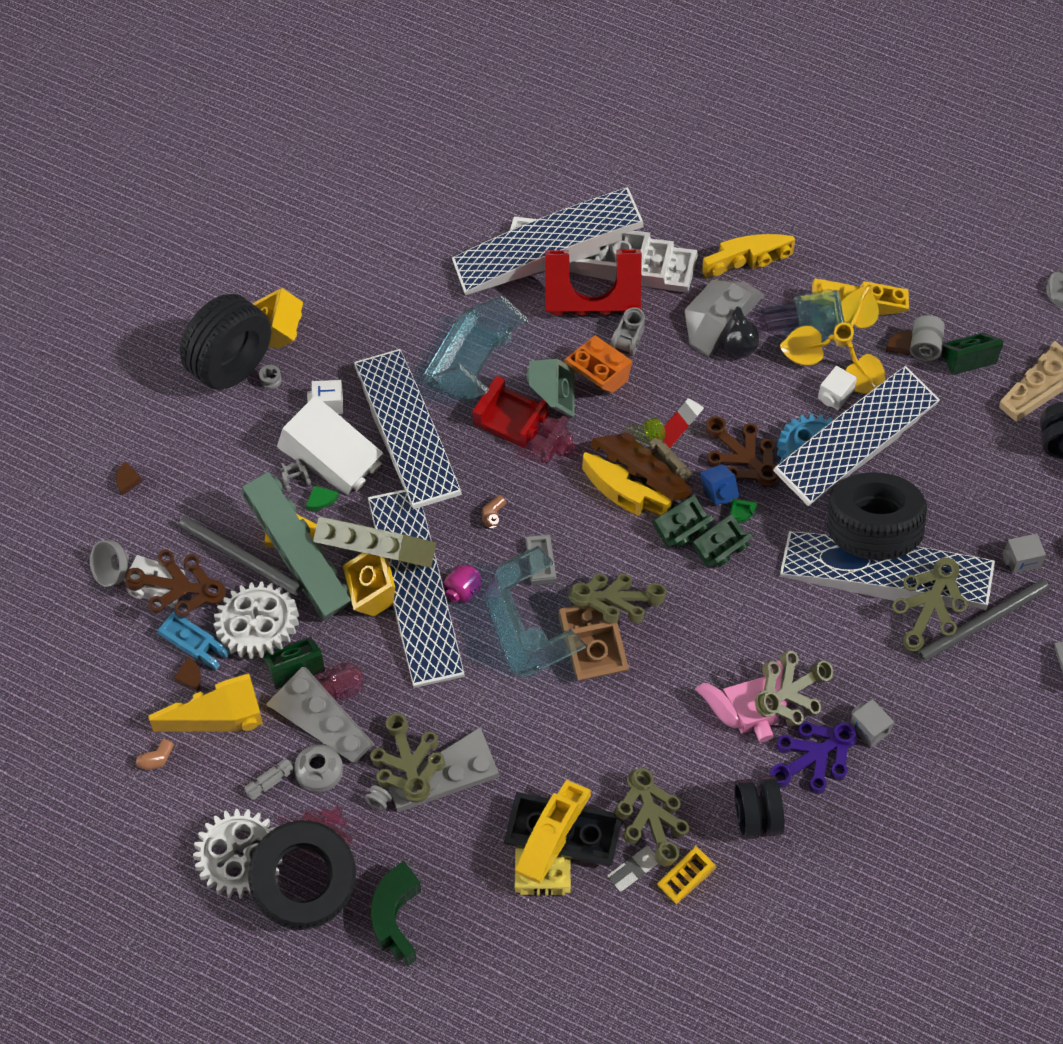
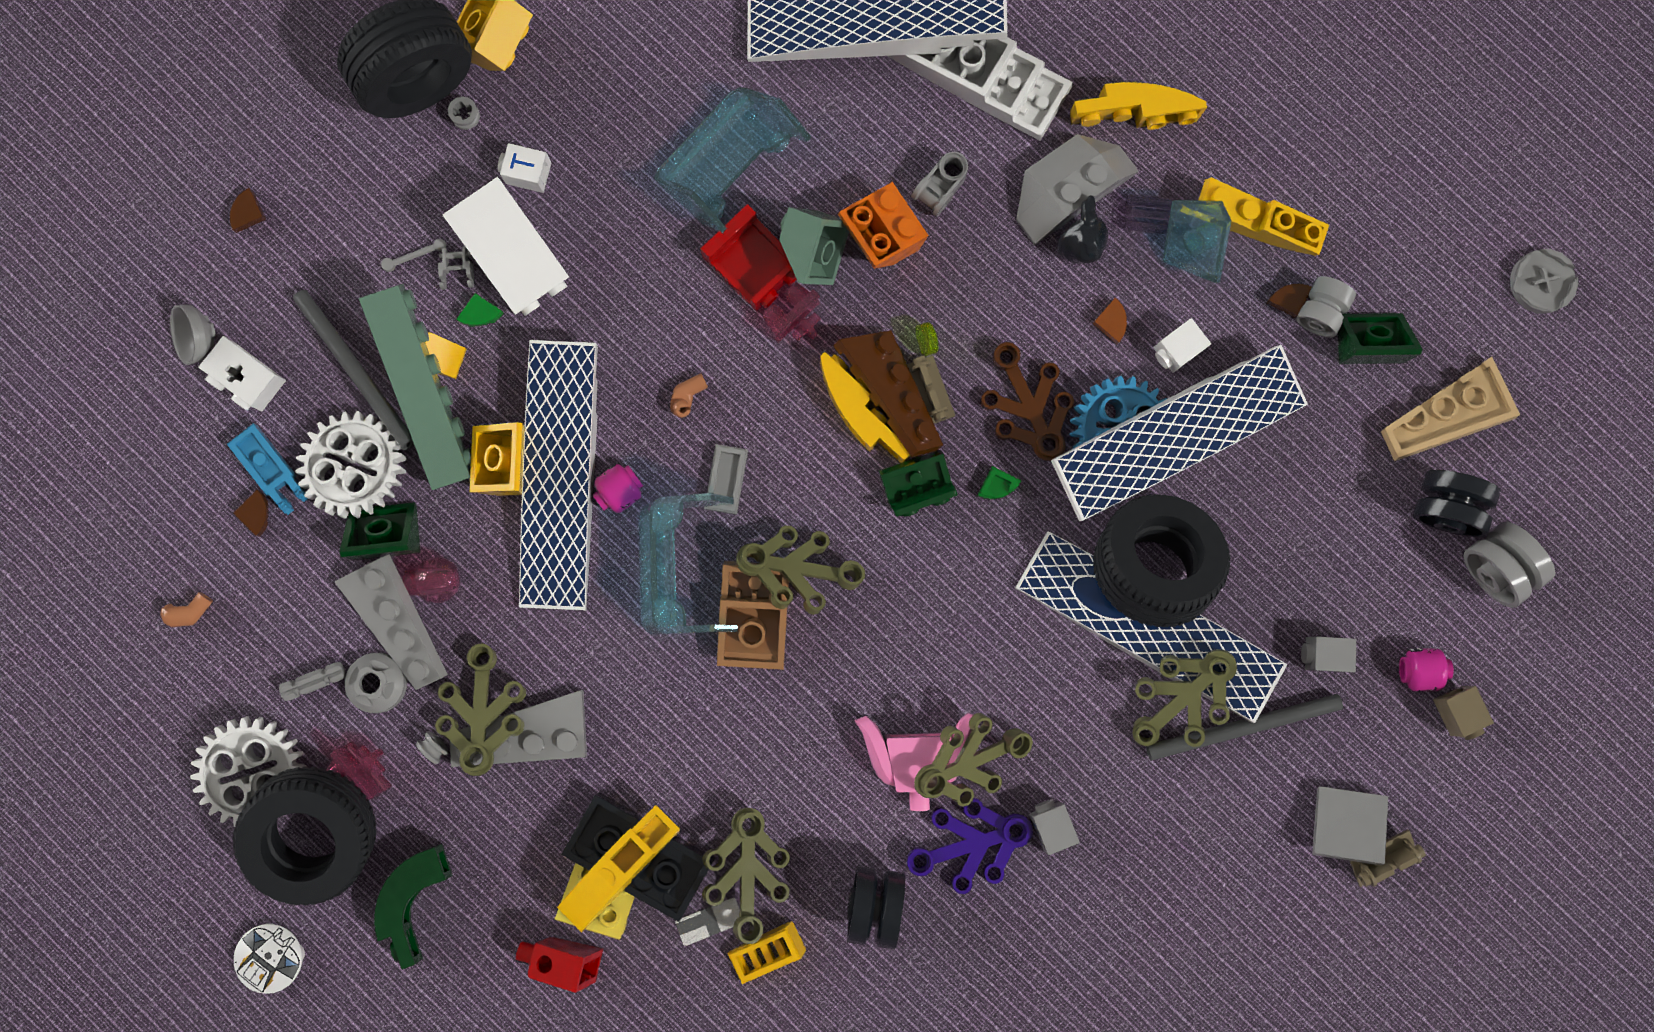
camera: 10 degrees right, 25 degrees up
(178, 585) = (264, 396): reddish brown plant -> none
(226, 709) = (286, 580): yellow wedge -> none
(276, 465) = (389, 264): none -> light grey hinge
(292, 991) = (268, 958): none -> white dish
(374, 541) = (485, 400): arch -> none
(407, 429) = (608, 251): dark blue slope -> none
(529, 919) = (561, 962): none -> red torso
(562, 296) = (874, 107): red arch -> none
(681, 421) = (966, 331): sticker -> none
(719, 484) = (981, 446): blue brick -> none
(721, 541) = (957, 526): dark green bracket -> none
(782, 388) = (1112, 321): none -> dark orange tile
(858, 309) = (1162, 271): yellow plant -> none

